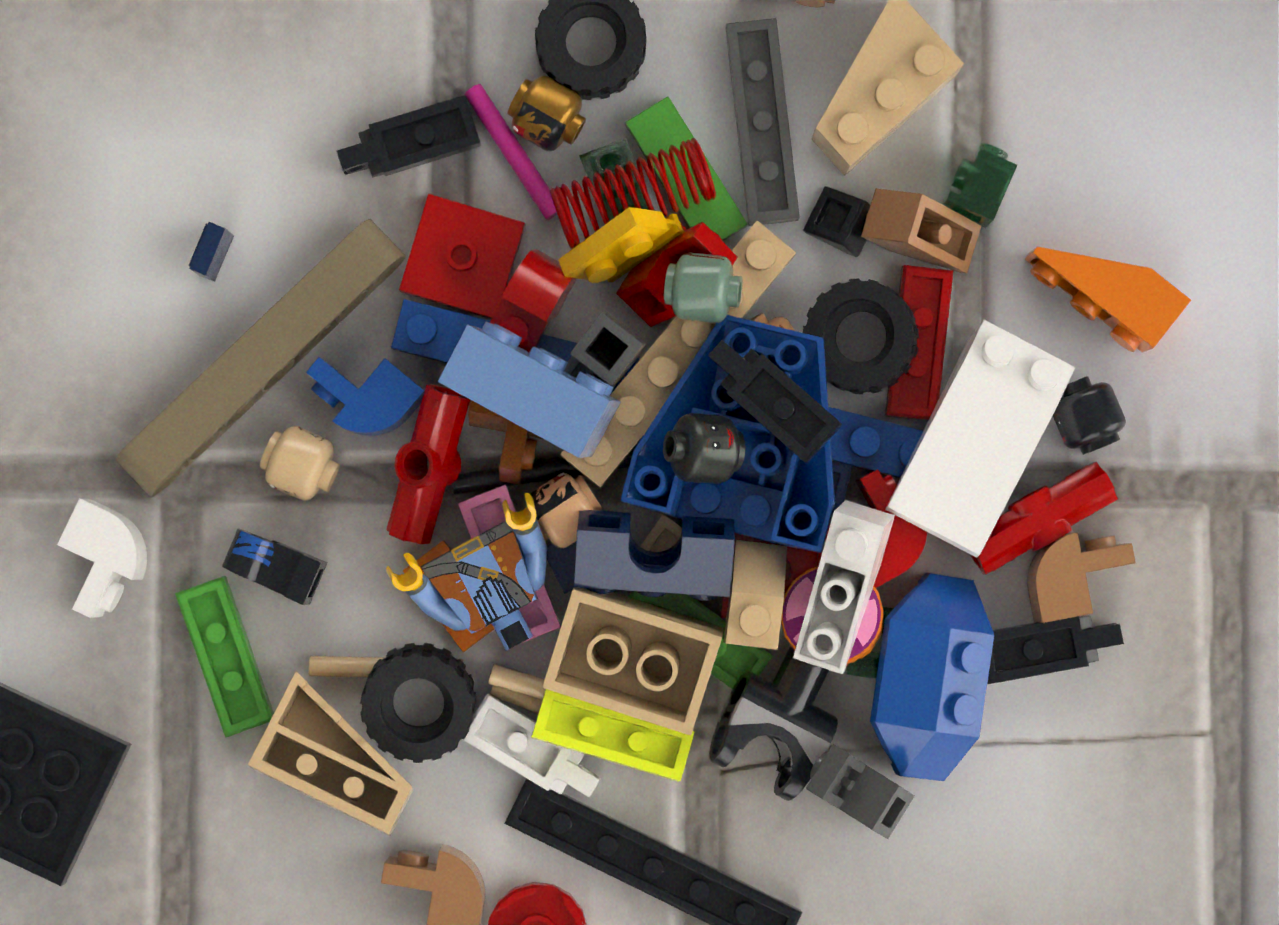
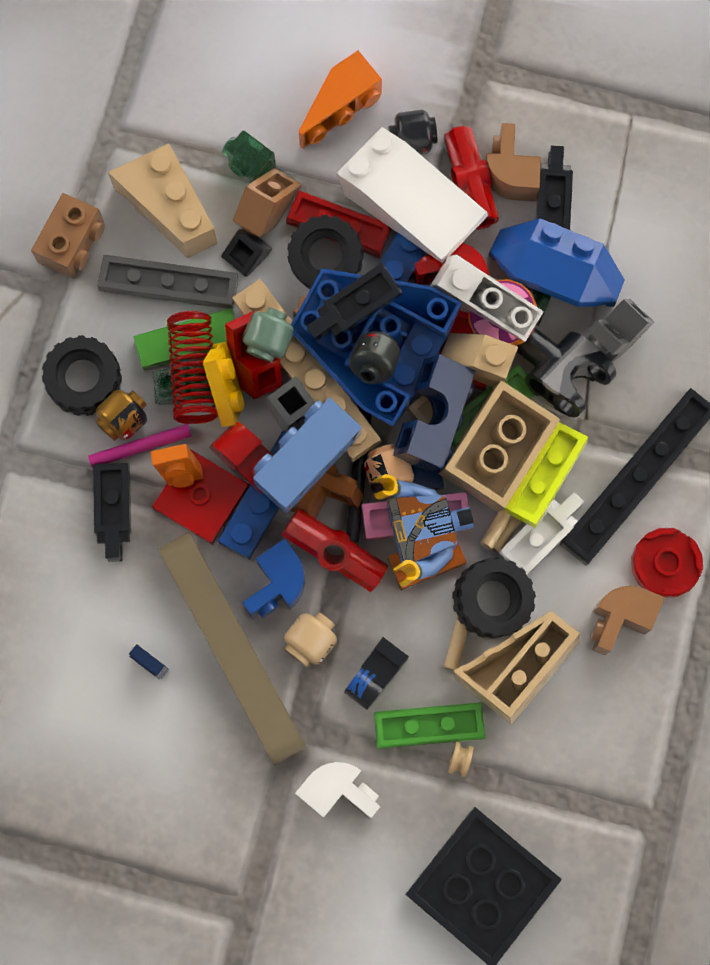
camera: 70 degrees left, 10 degrees down
(187, 710) = (460, 759): none -> tan bush
(480, 213) = (177, 465): none -> orange plate

